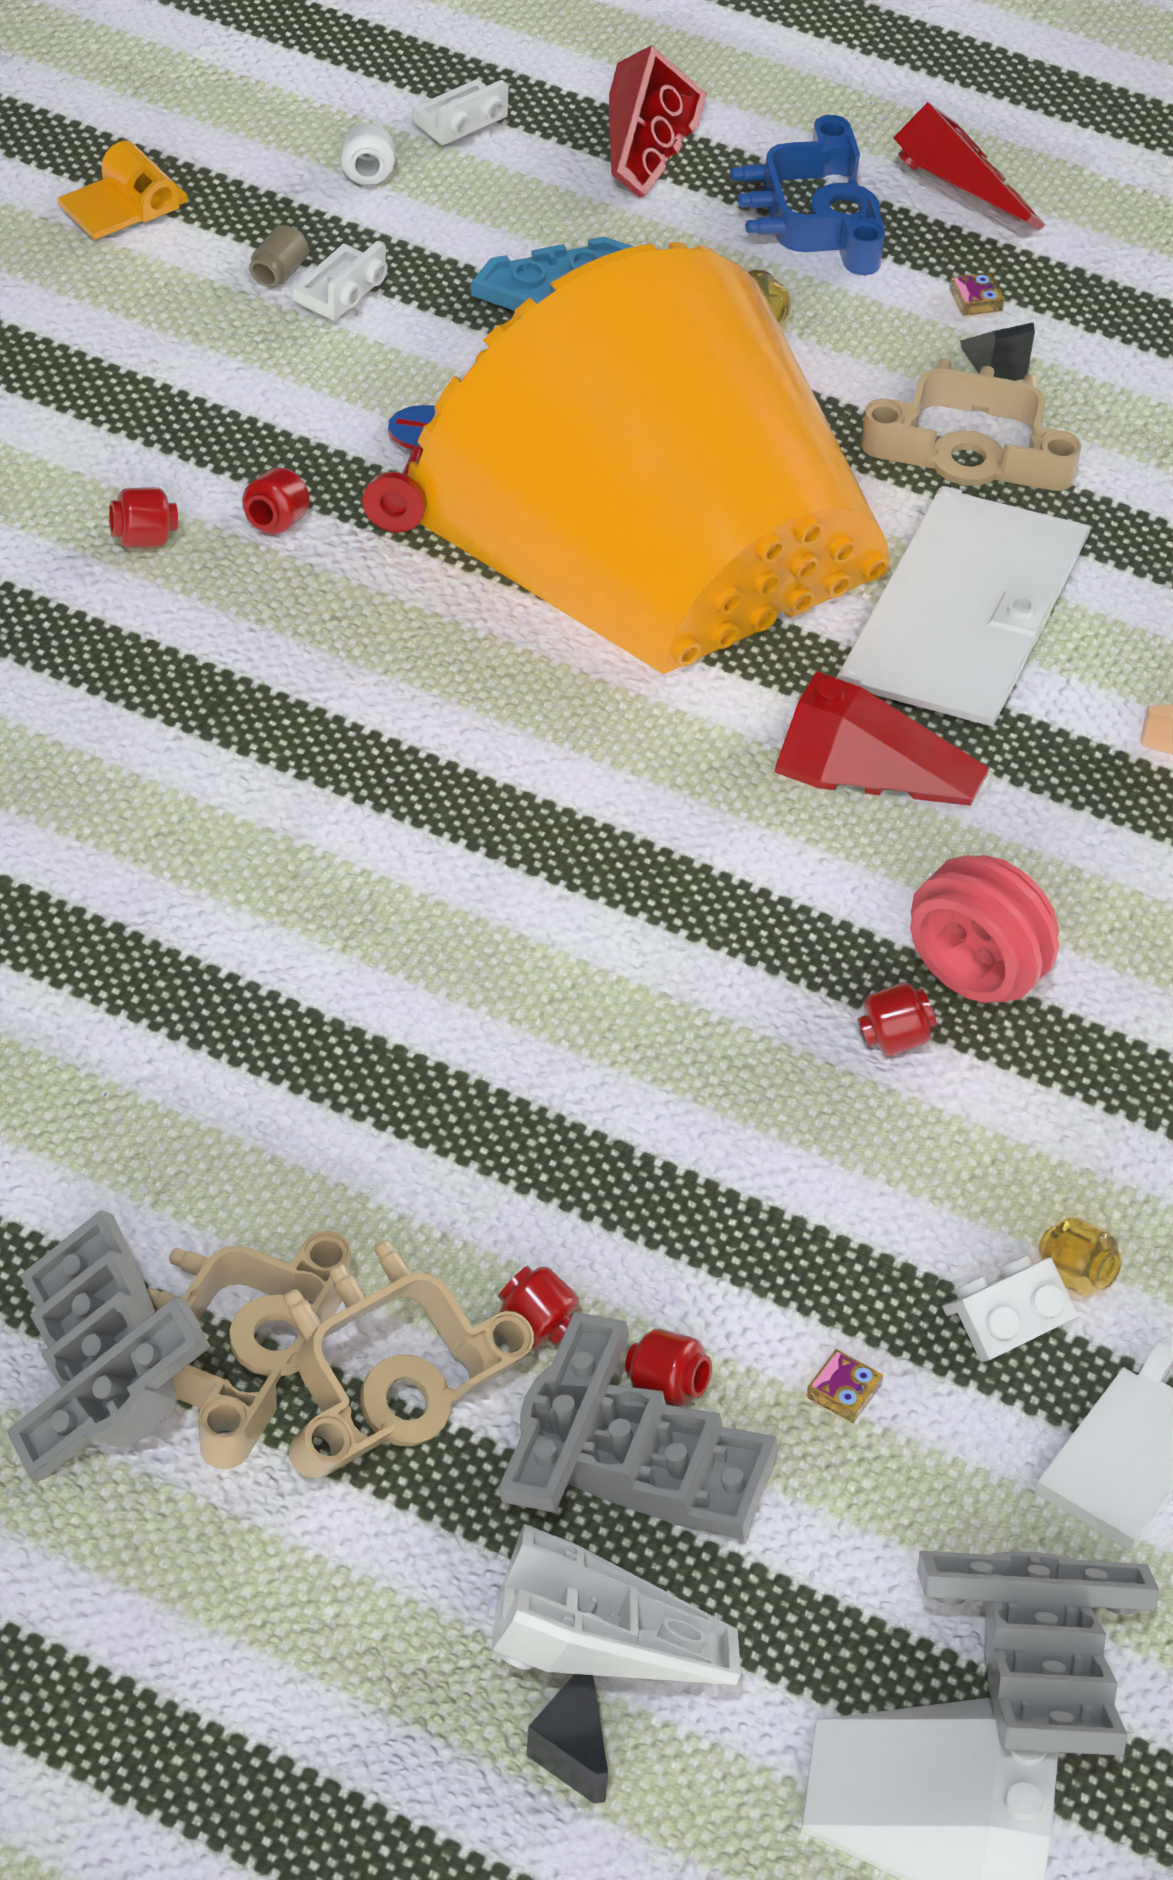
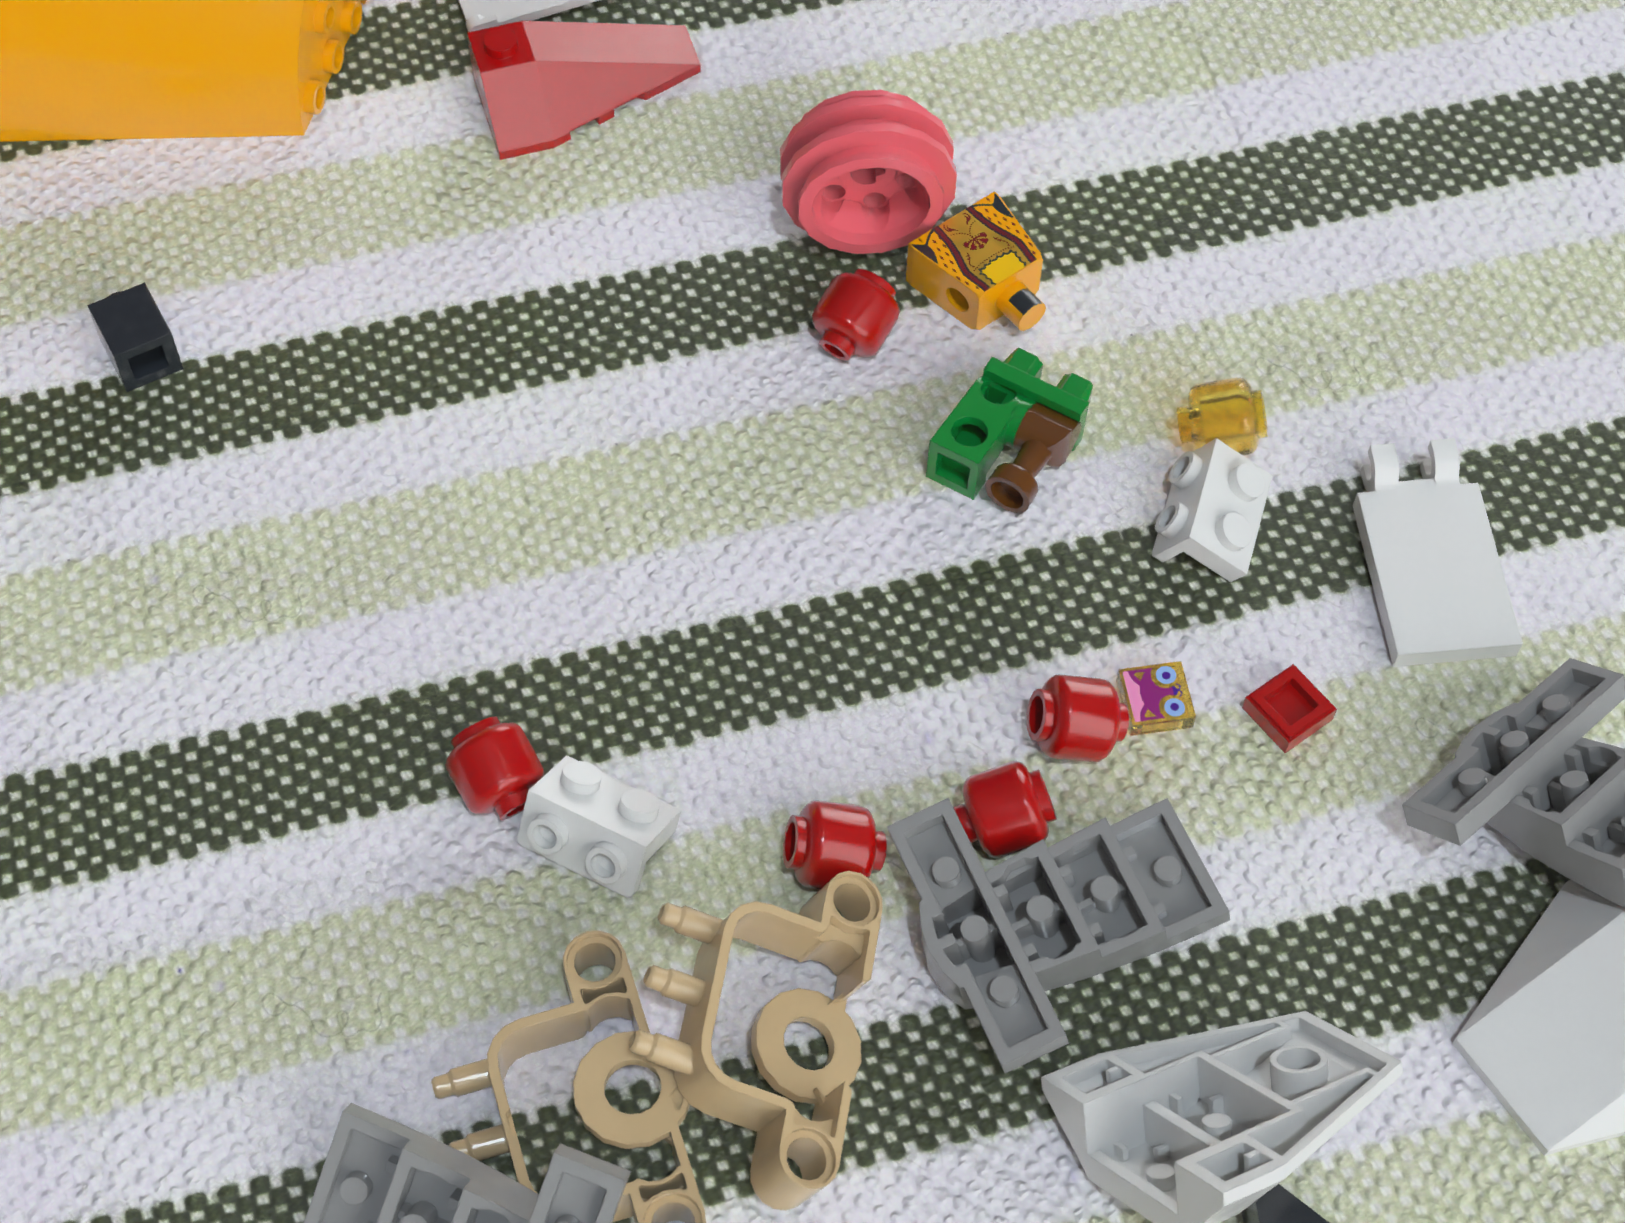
camera: 40 degrees left, 10 degrees up
(385, 1113) = (493, 767): none -> red head
(414, 1189) = (595, 824): none -> white bracket
(429, 723) = (135, 337): none -> black brick
(773, 1353) = (1076, 718): none -> red head
(929, 1459) = (1289, 708): none -> red tile
(932, 1143) = (1012, 410): none -> green hips
(1016, 1047) = (979, 266): none -> torso

